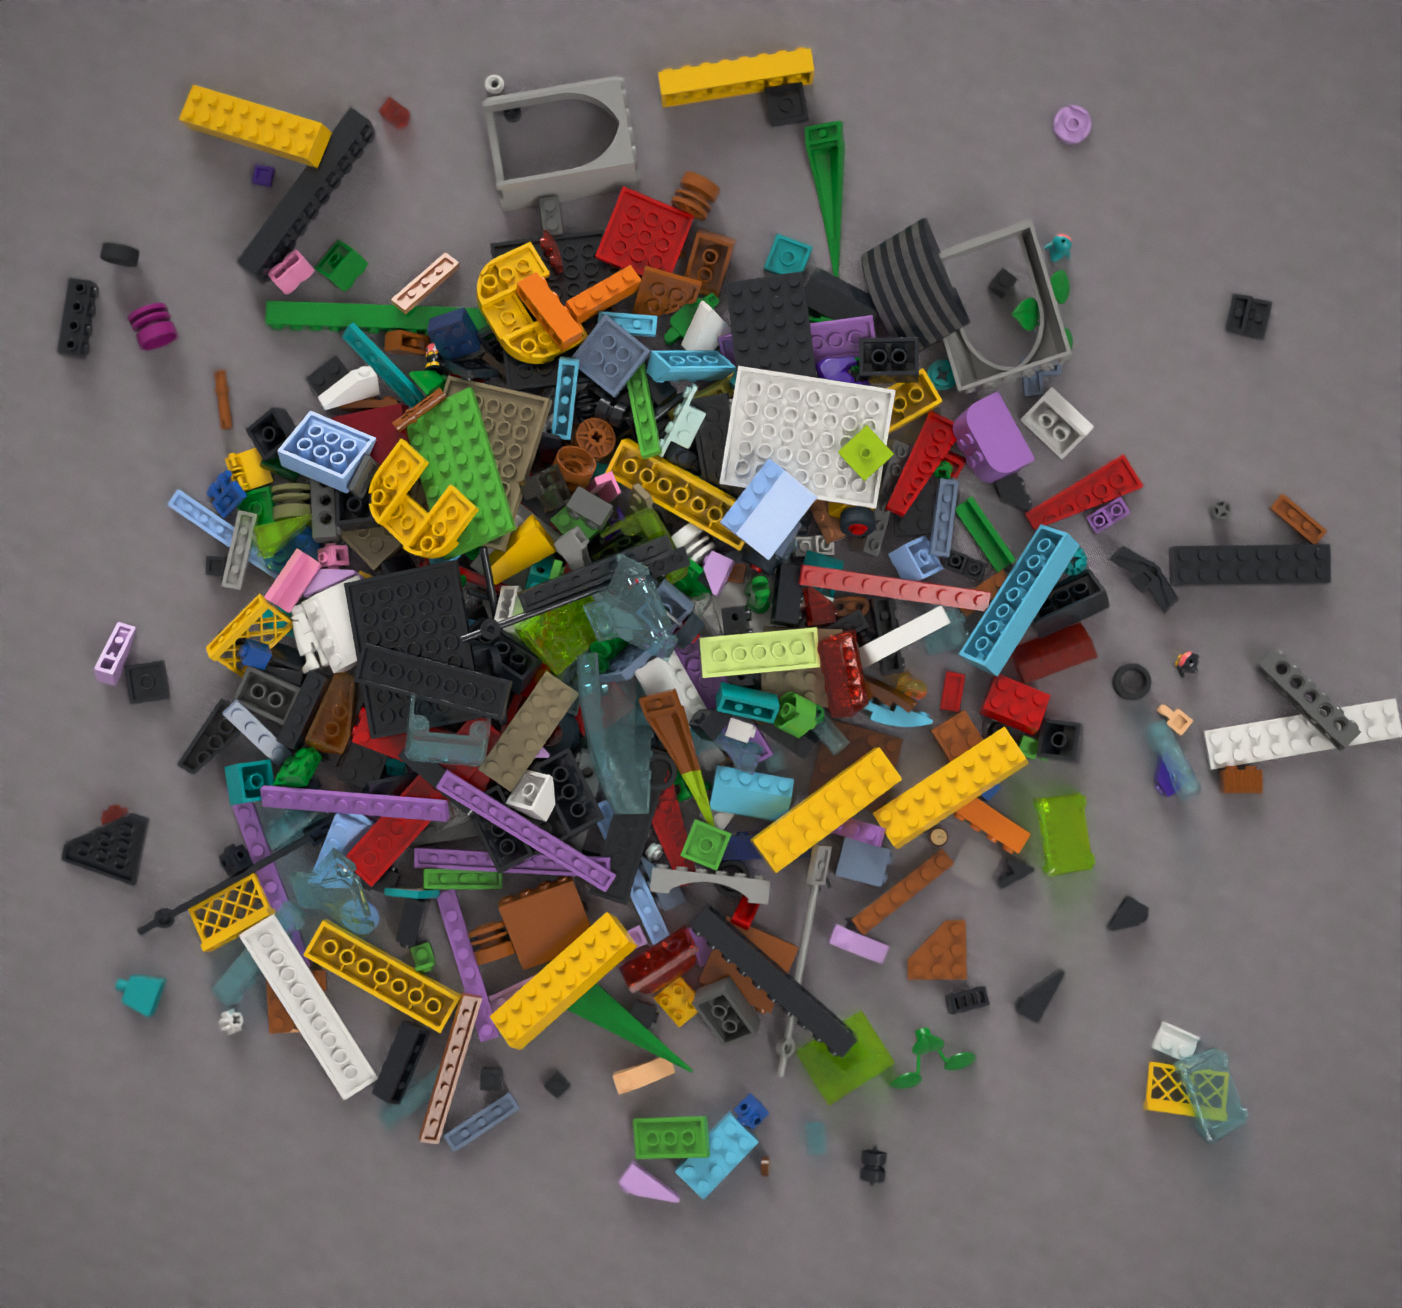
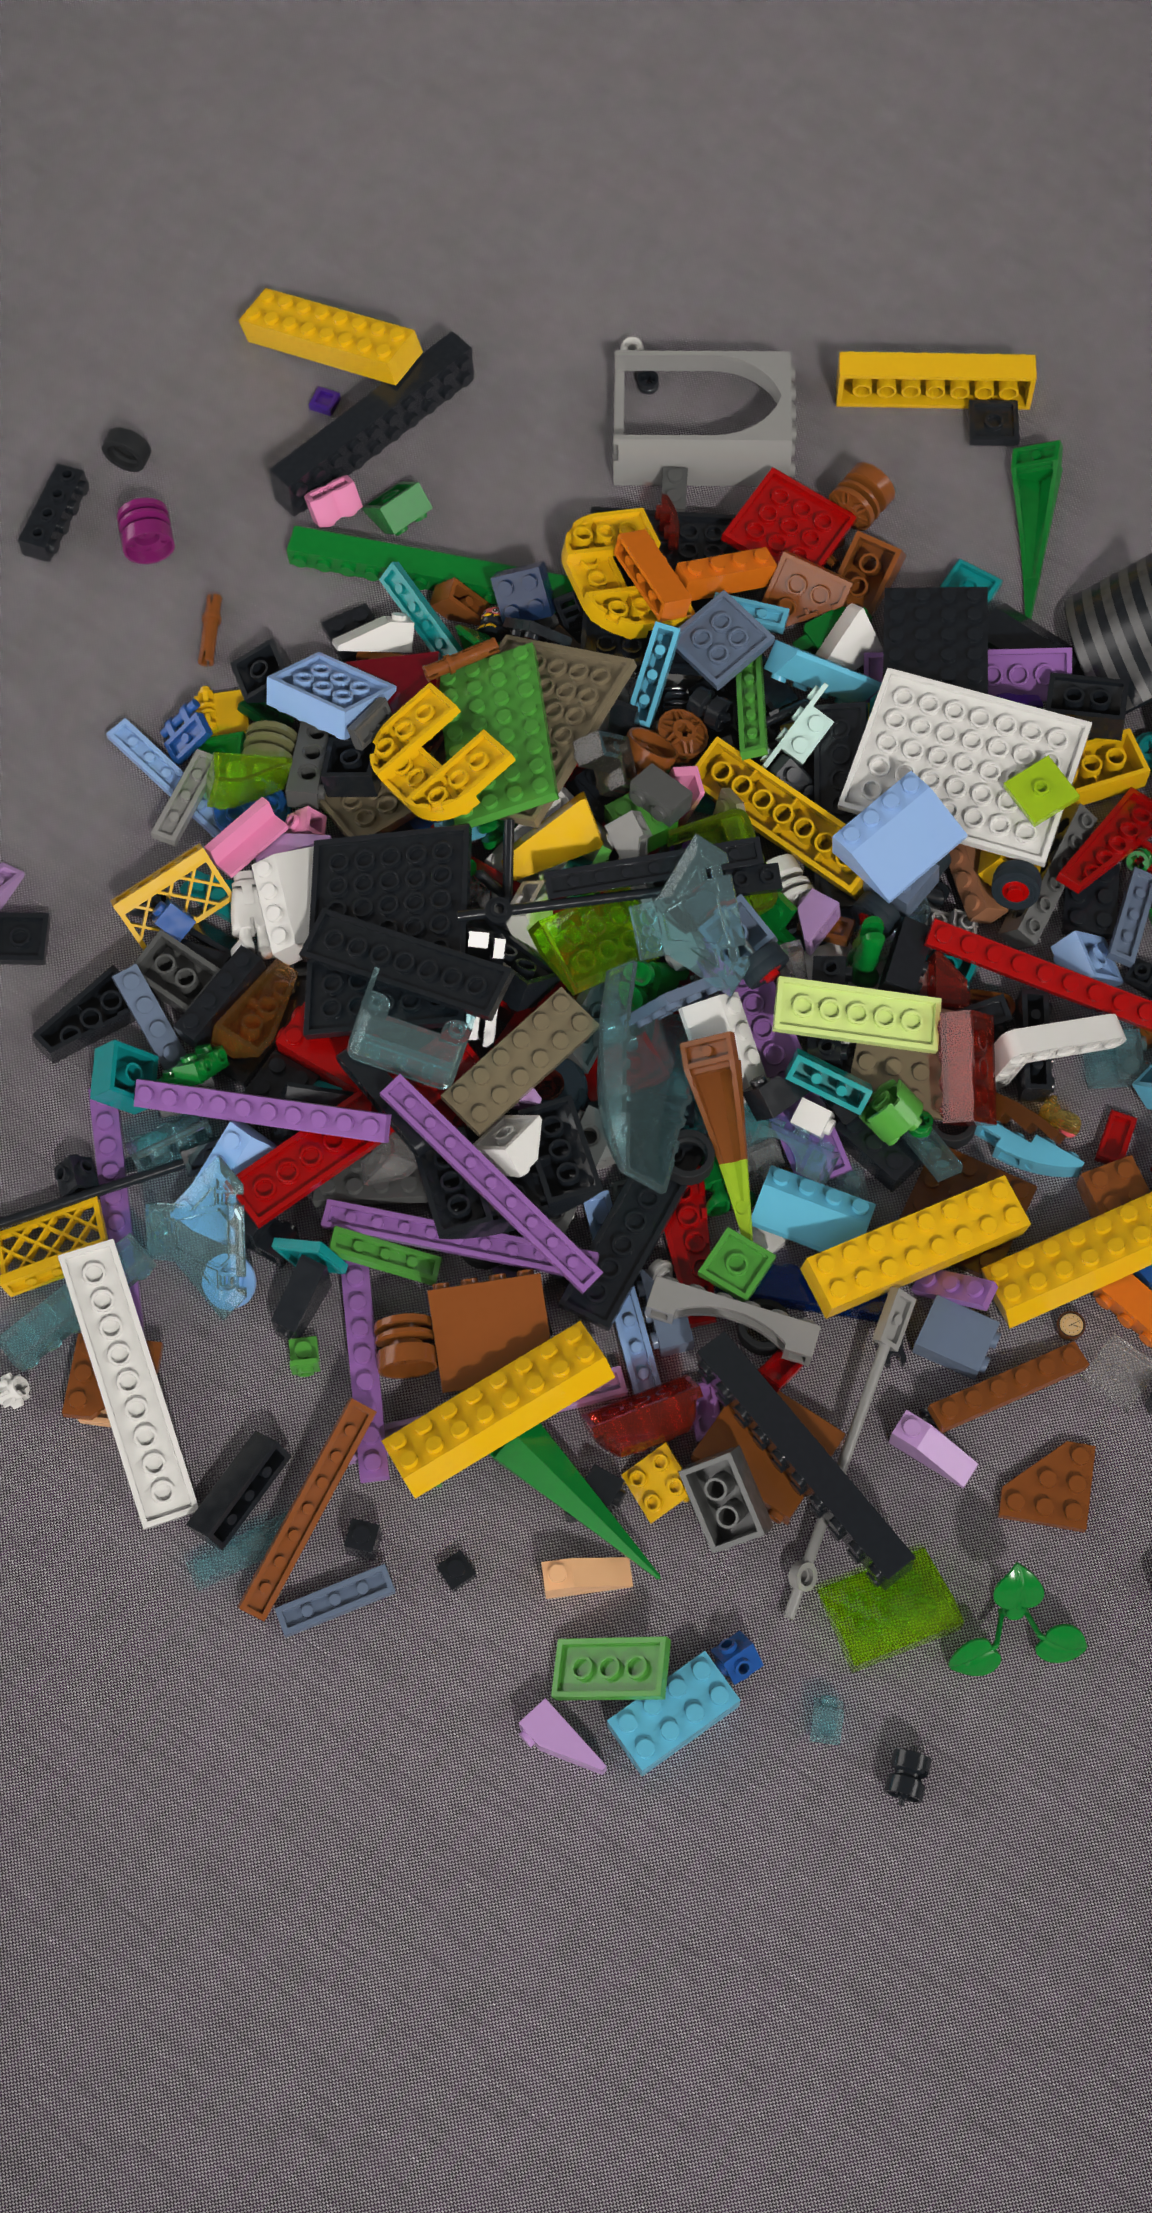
camera: 10 degrees right, 20 degrees down
(215, 565) = (147, 815): black plate -> none
(382, 975) = (241, 1365): yellow brick -> none
(388, 109) = (502, 359): clear red brick -> none
(425, 283) = (499, 538): plate -> none
(765, 1166) = (743, 1746): reddish brown tile -> none
(951, 1005) = (1064, 1562): black slope -> none

